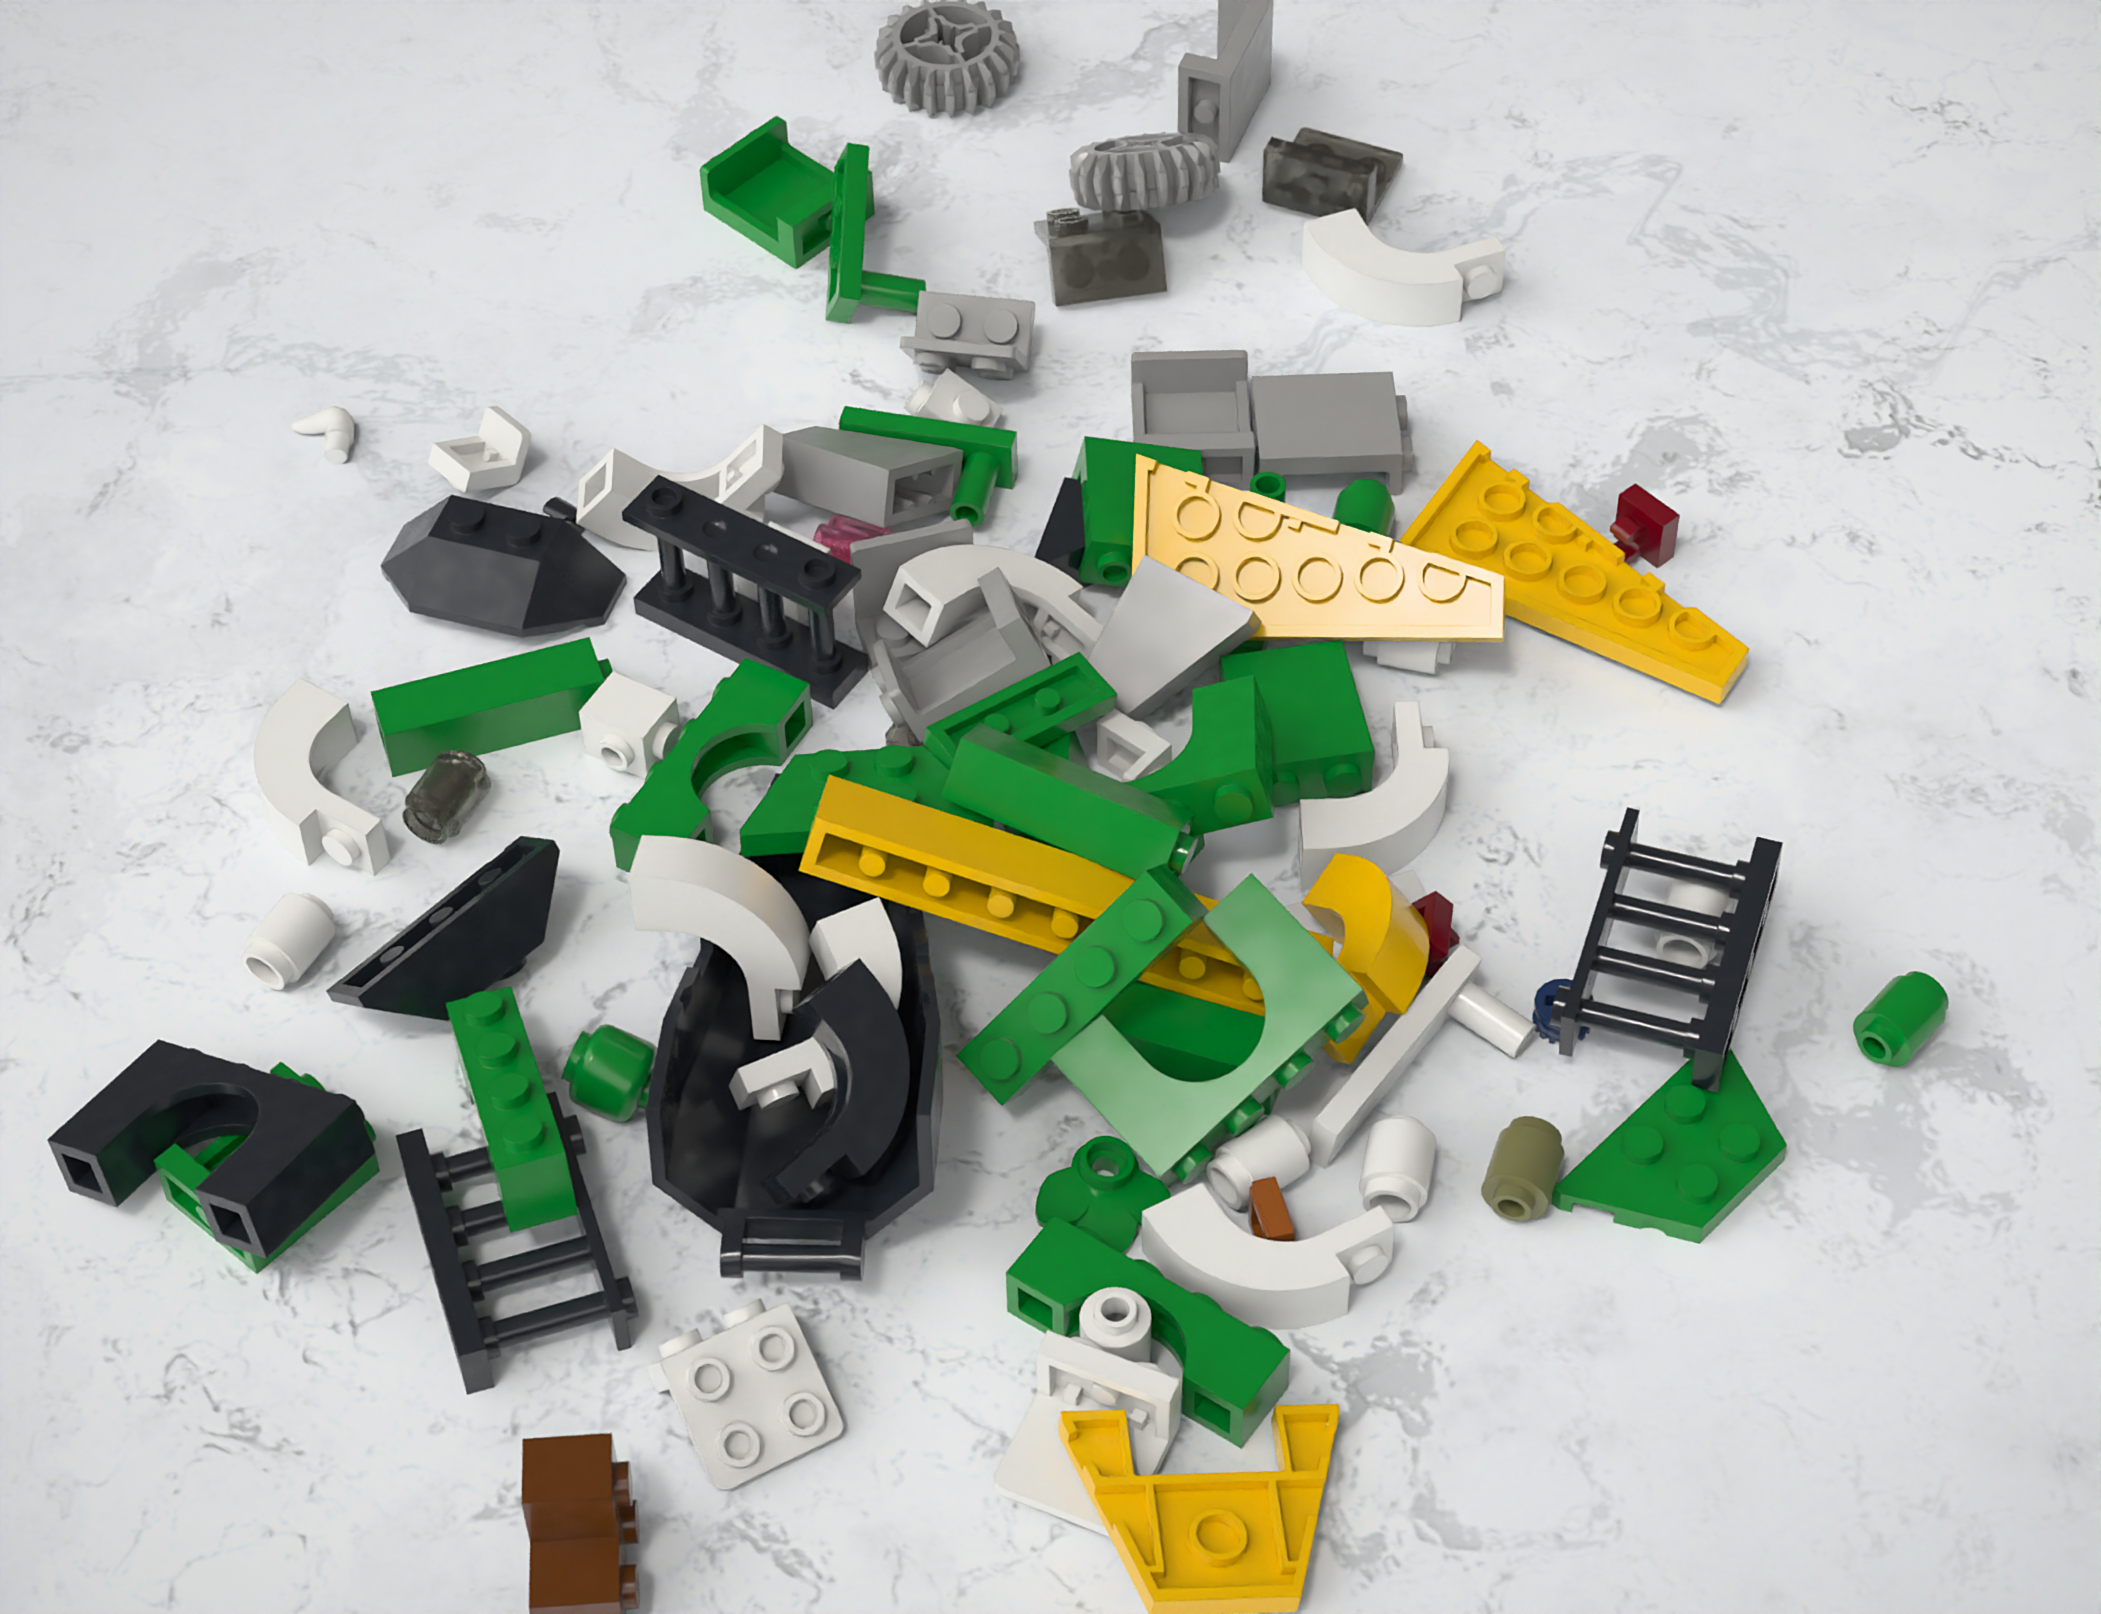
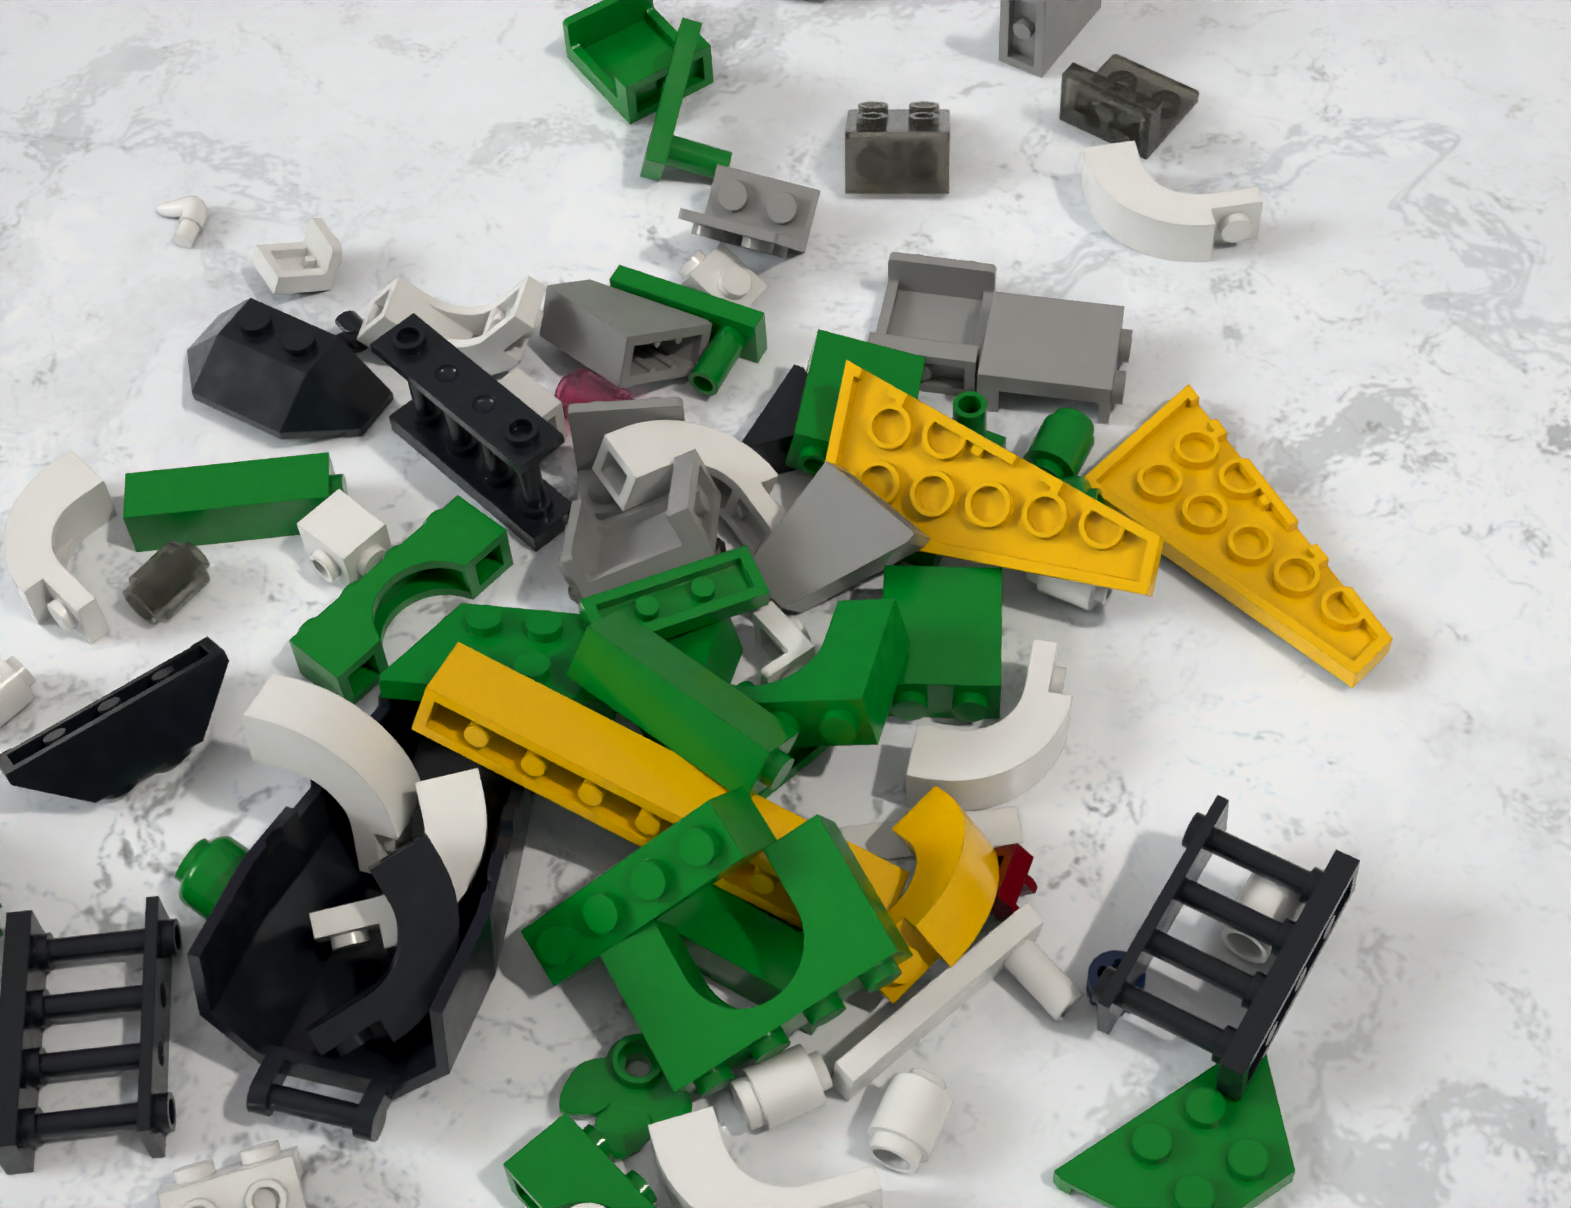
camera: 15 degrees right, 5 degrees up
(512, 1109) = (103, 931): green arch -> none
(1144, 171) = (952, 78): light grey gear -> none
(1268, 1212) = (771, 1149): dark orange tile -> none
(1523, 1169) = (1029, 1146): olive brick -> none
(1644, 527) = (1323, 497): dark red tile -> none
(1901, 1019) = (1443, 1057): green brick -> none

